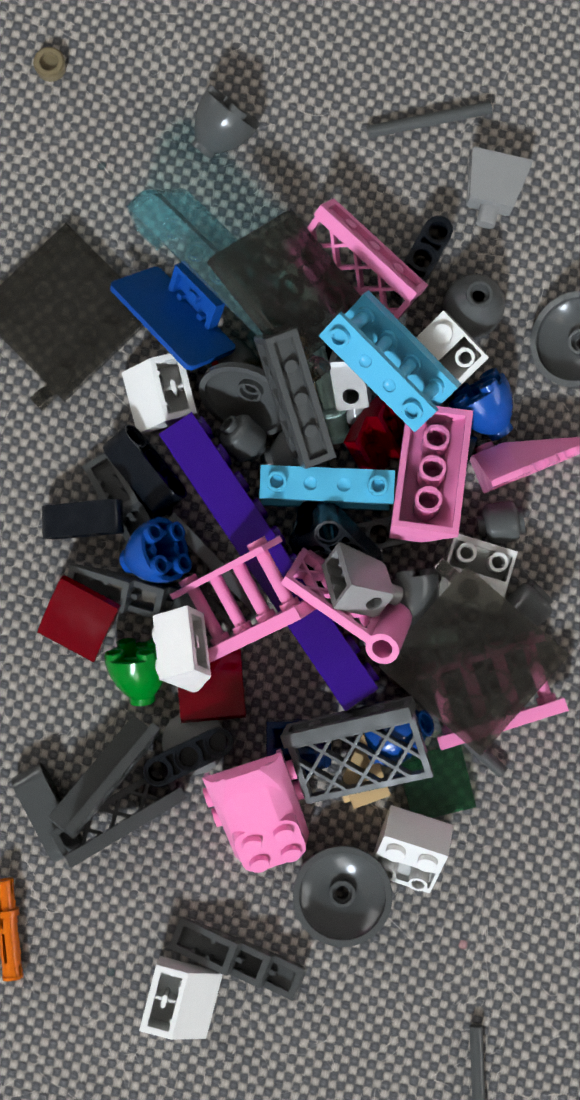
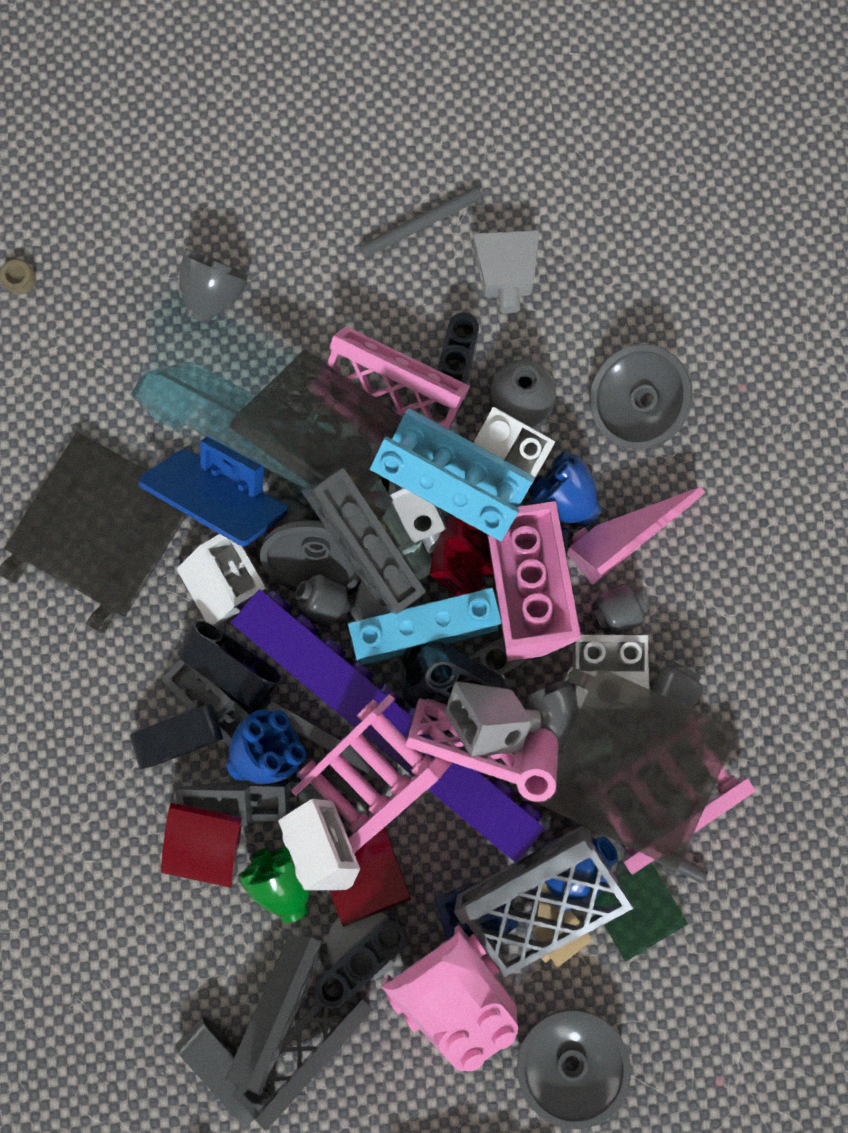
camera: 10 degrees left, 5 degrees down
(413, 848) = (634, 991): white slope -> none

